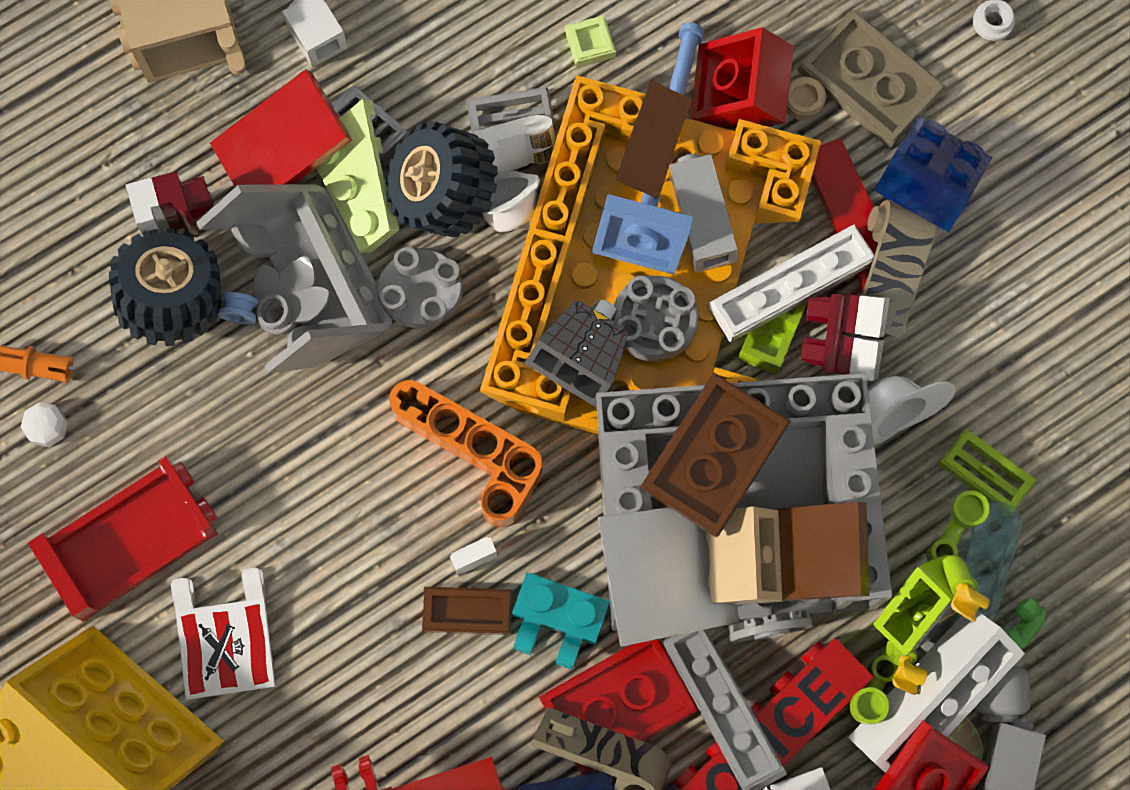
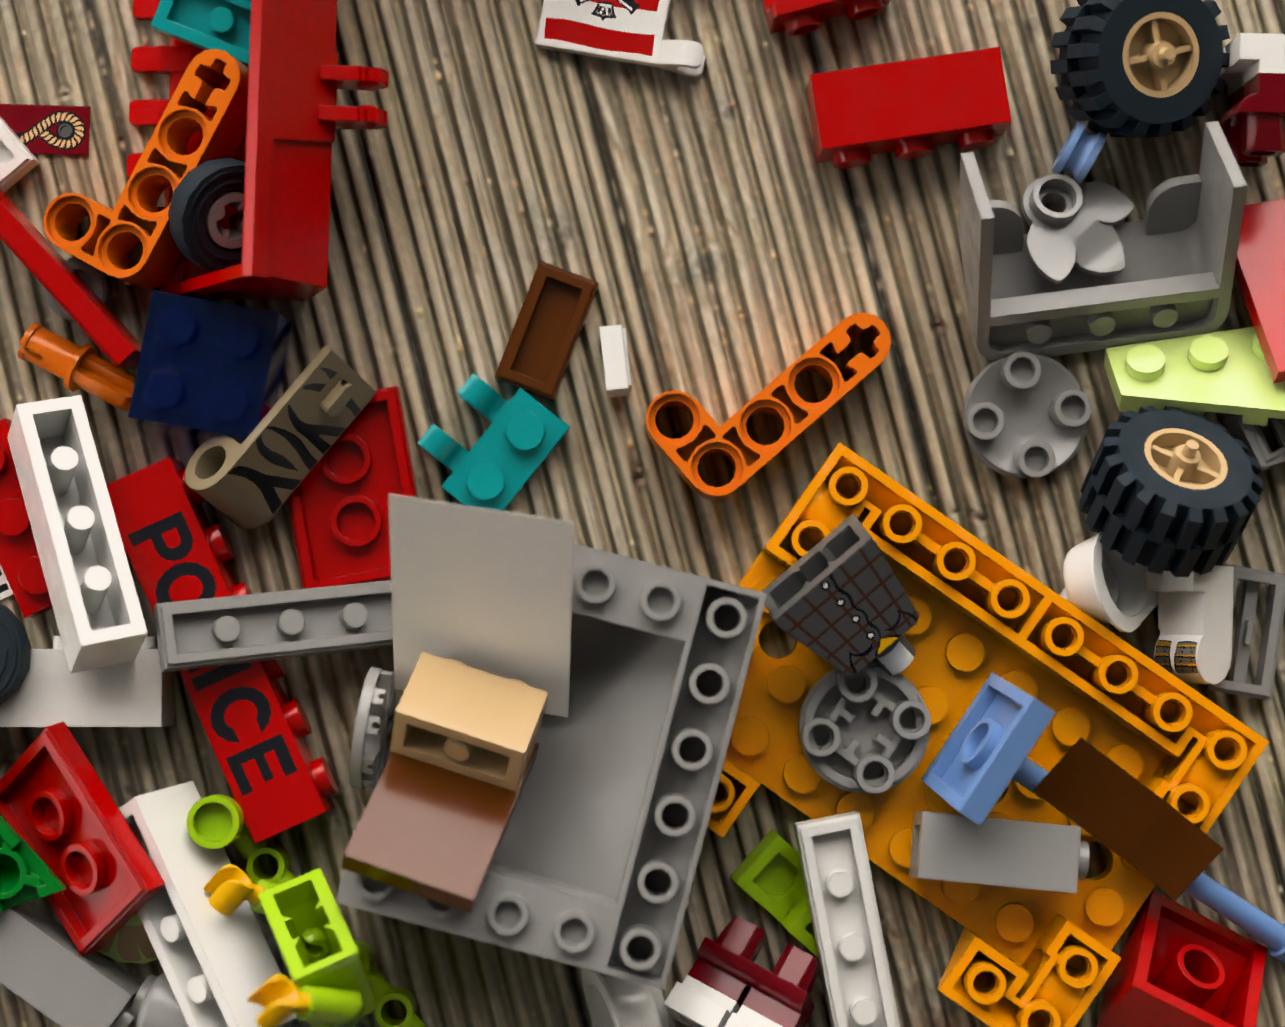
camera: 110 degrees right, 10 degrees up
(243, 424) = (908, 107): none -> red brick
(715, 455) = (616, 727): reddish brown tile -> none

